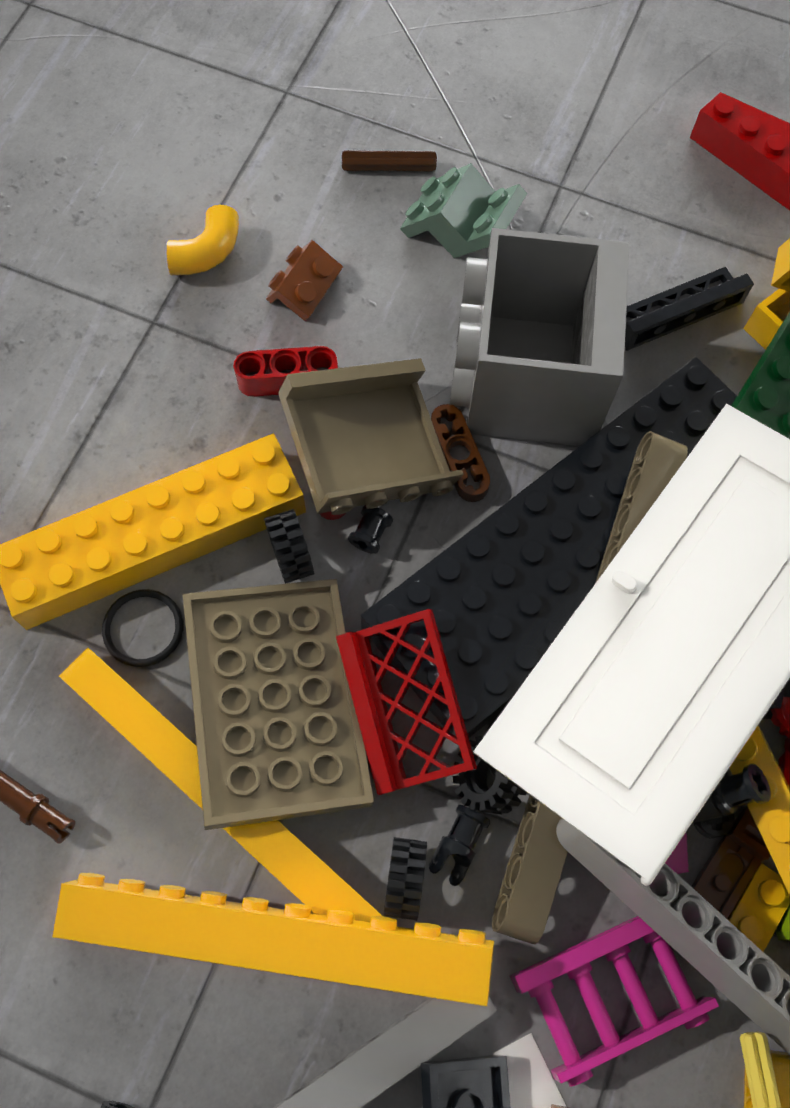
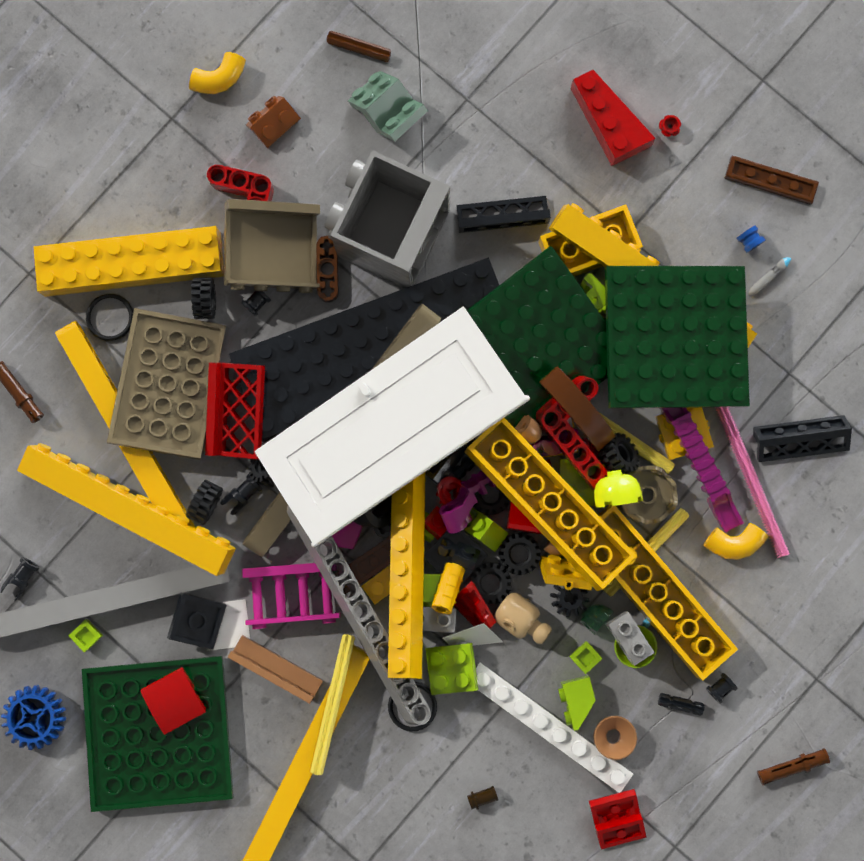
camera: 25 degrees right, 15 degrees up
(742, 789) = (385, 517): black bush -> none

